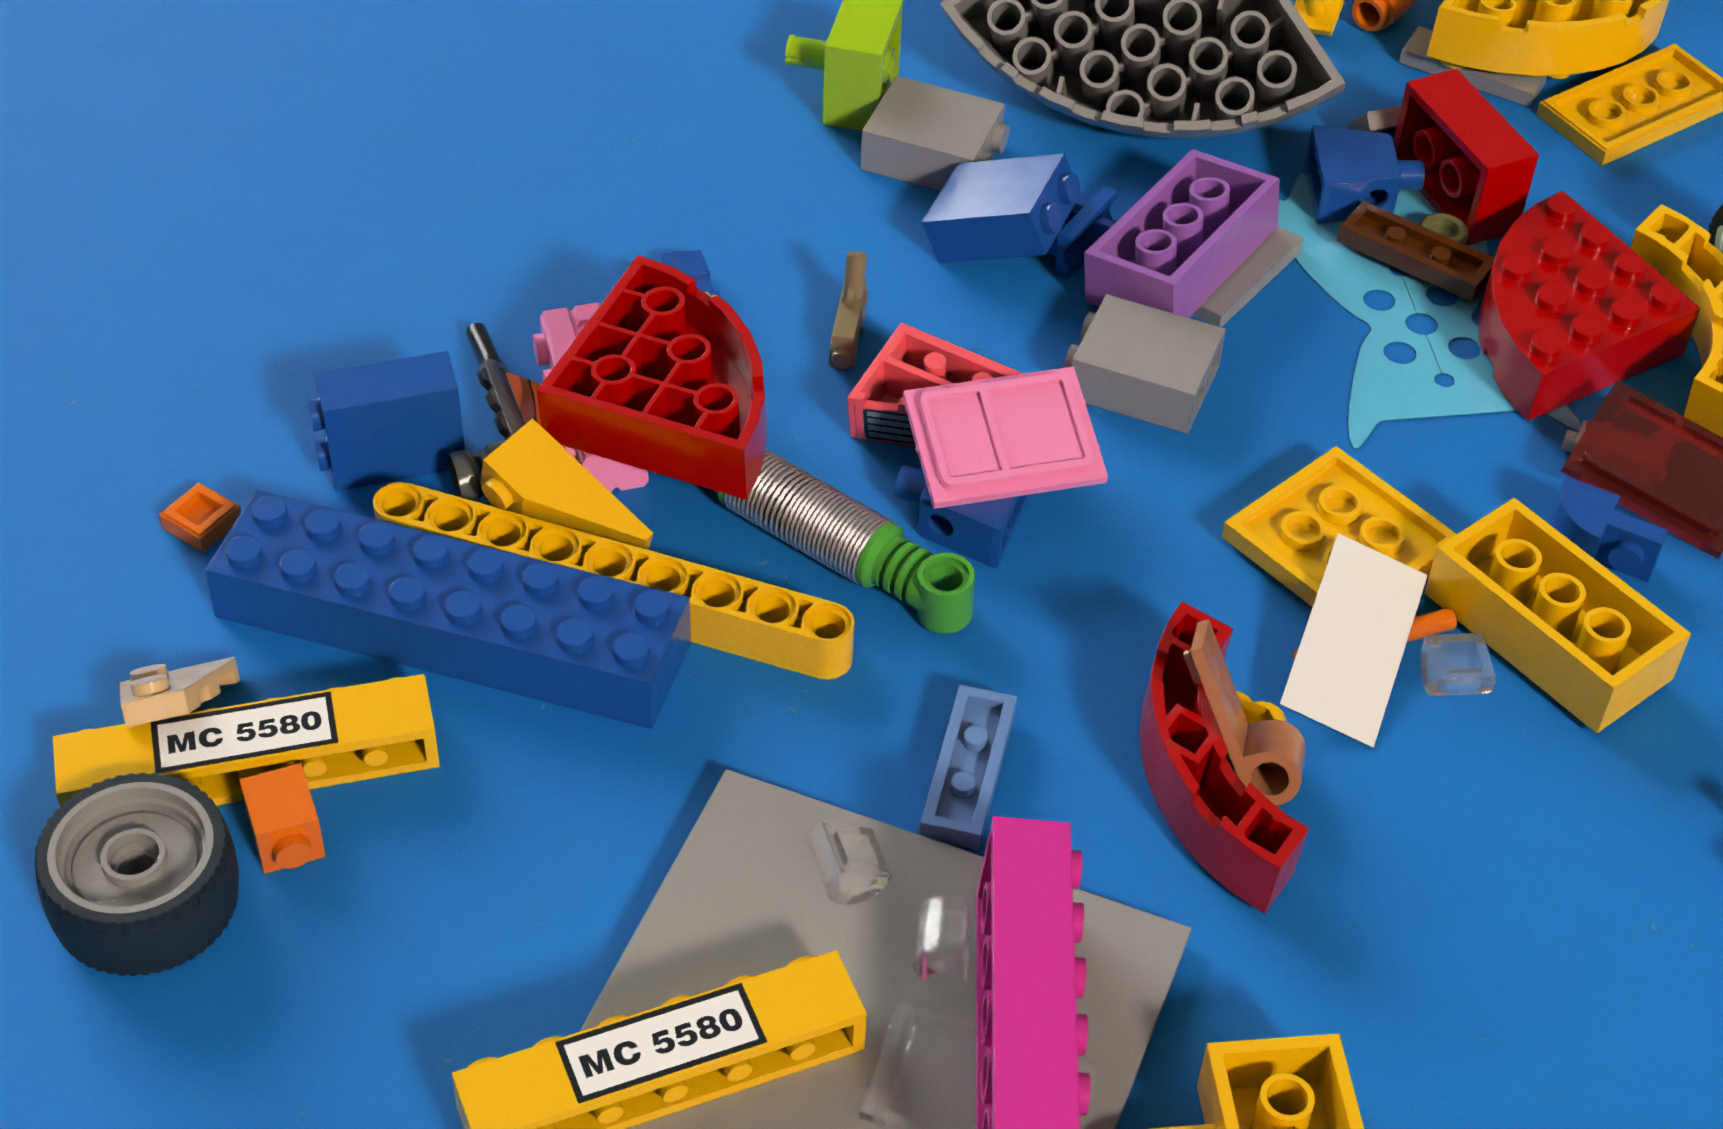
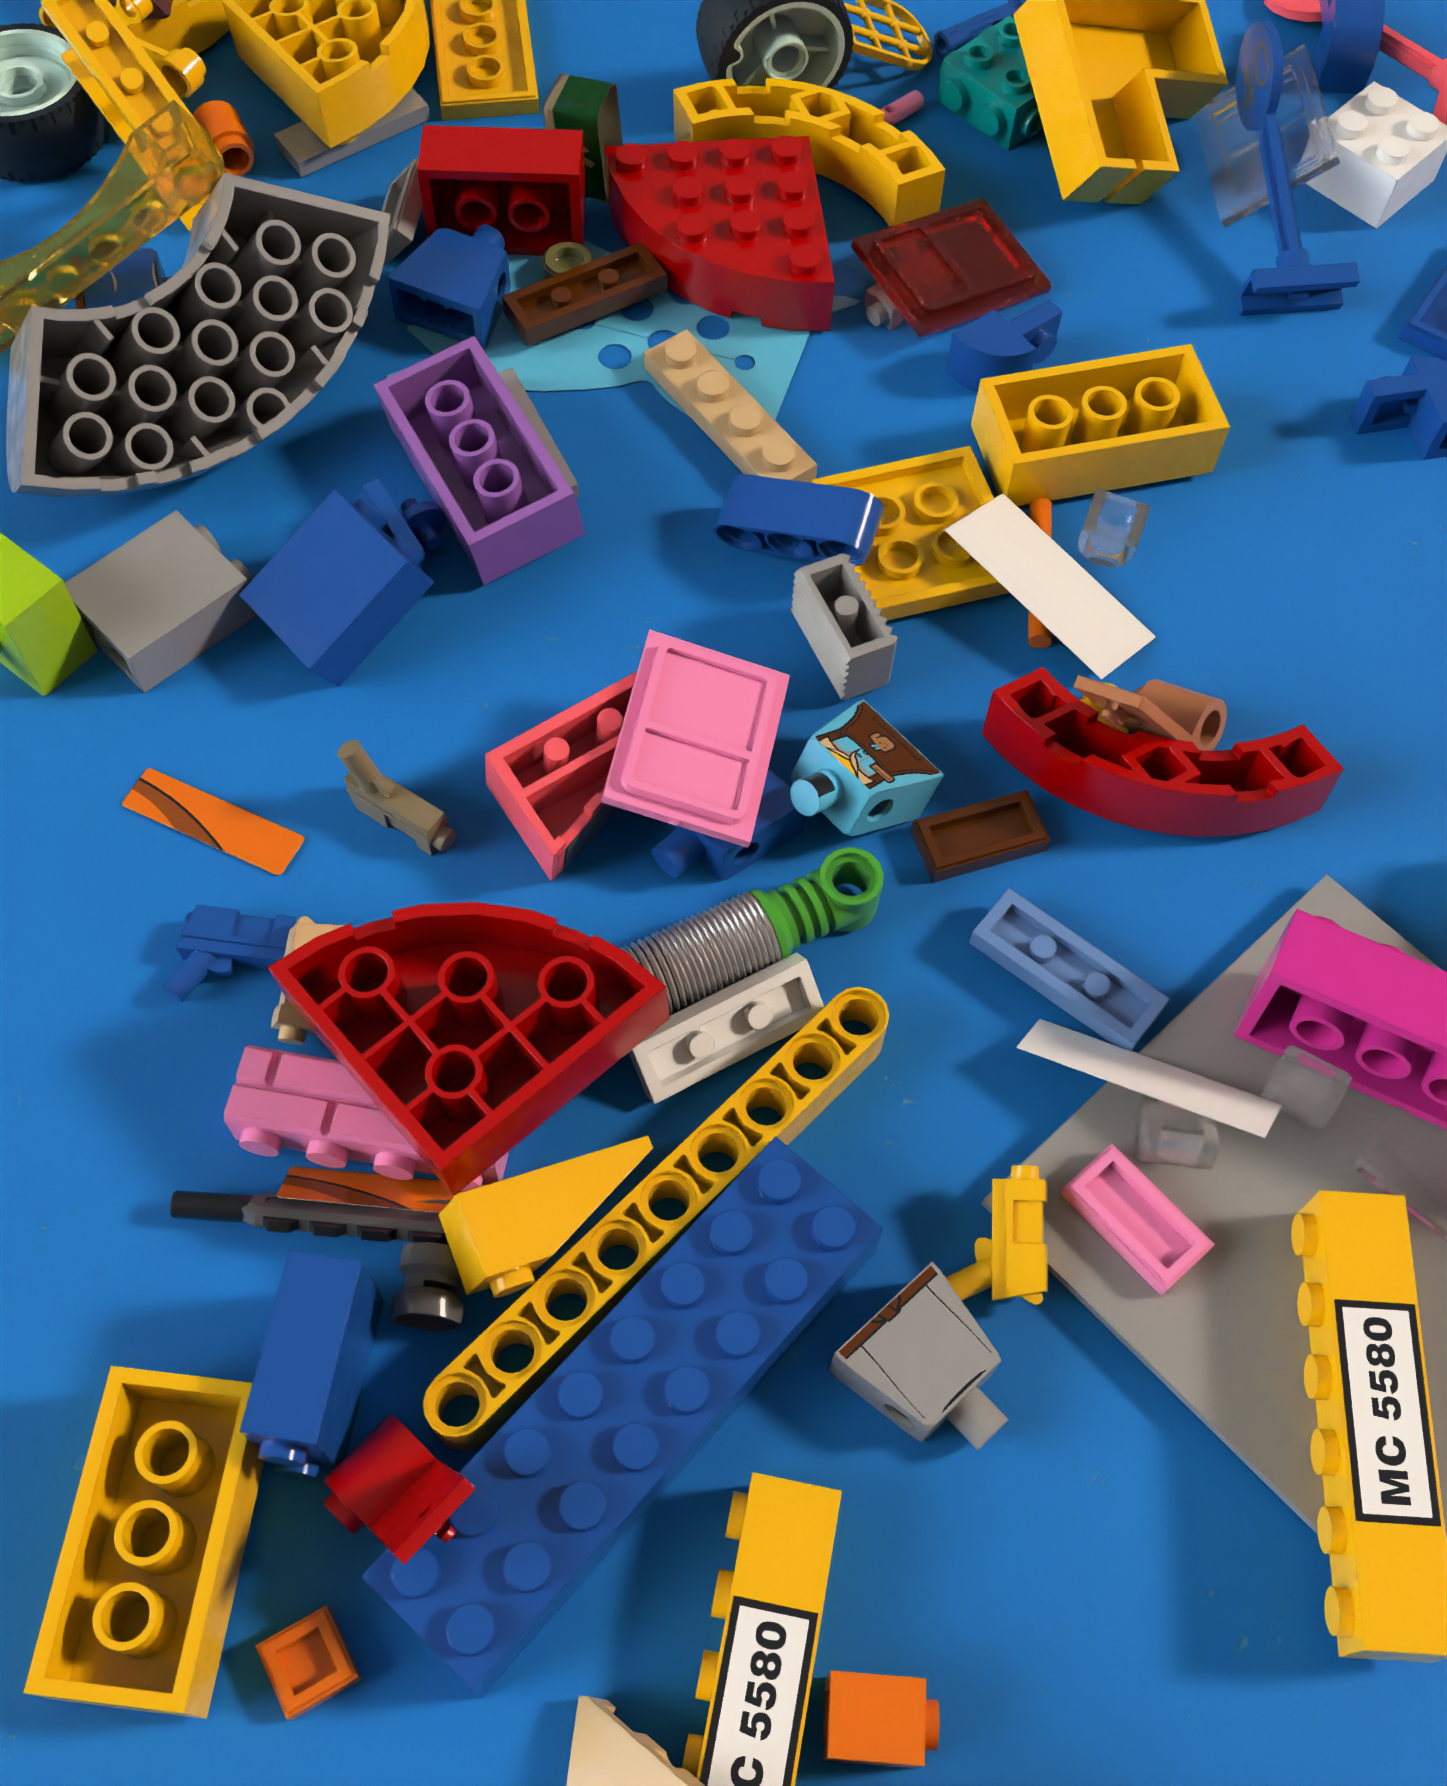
camera: 65 degrees left, 15 degrees up
(228, 397) = (151, 1547): none -> yellow brick
(321, 484) = (396, 1490): none -> red door
(570, 766) = (924, 1362): none -> light grey torso
(690, 794) = (1016, 1256): none -> yellow piece
(759, 867) = (1136, 1219): none -> bright pink tile
(774, 557) = (727, 1027): none -> white plate
(780, 243) = (213, 821): none -> orange sticker
(891, 835) = (1151, 1077): none -> white sticker
(1054, 560) = (862, 774): none -> medium azure torso
(1067, 677) = (979, 836): none -> reddish brown tile
(1146, 362) = (614, 574): light grey brick -> none
(1192, 507) = (843, 626): none -> light grey brick
(1279, 444) = (799, 519): none -> blue beam
(1370, 382) = (726, 410): none -> tan plate
(1563, 150) = (589, 107): none -> dark green piece

